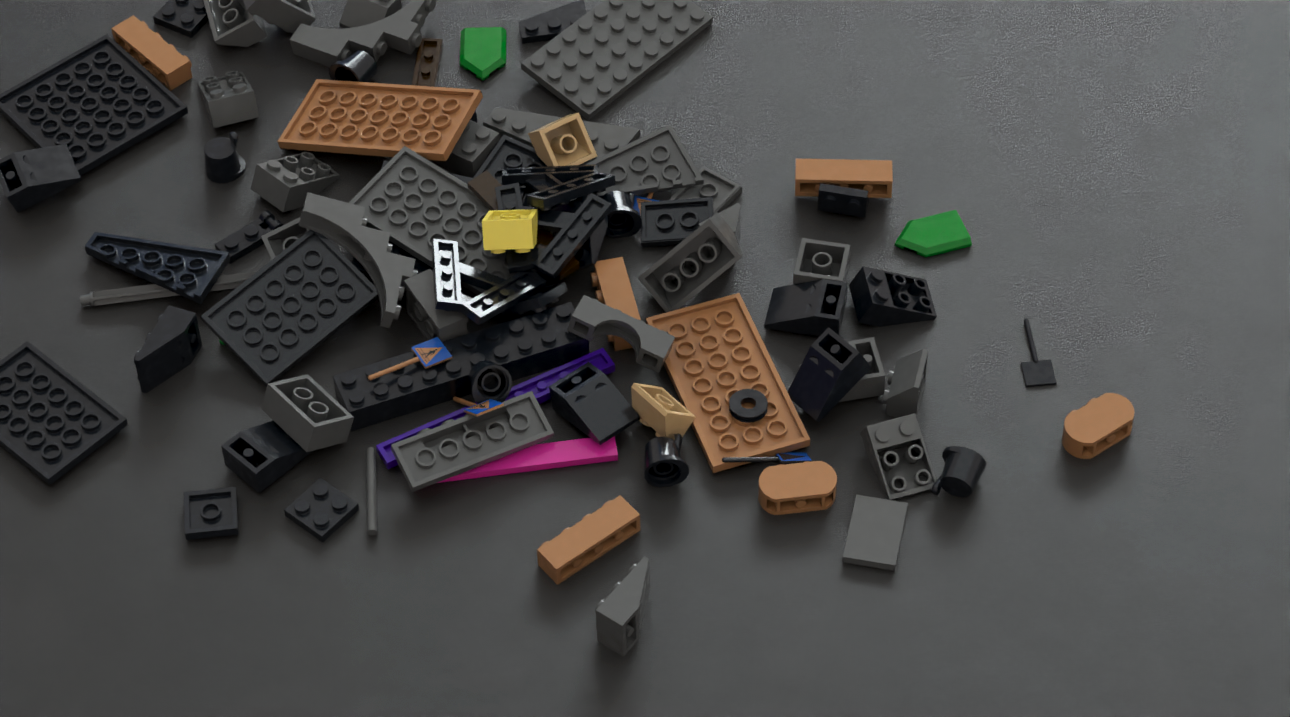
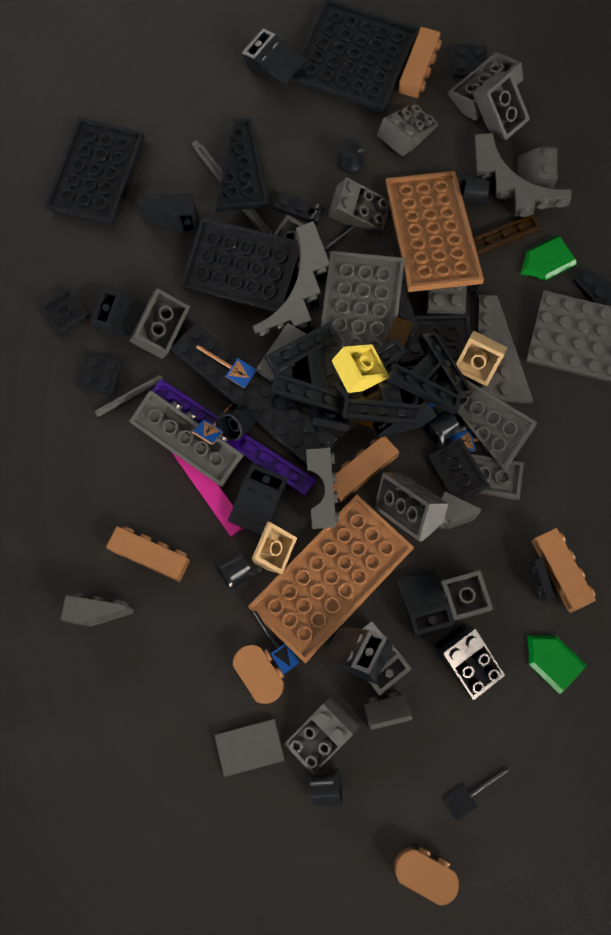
camera: 65 degrees right, 25 degrees up
(748, 396) = (312, 595): black piece -> none

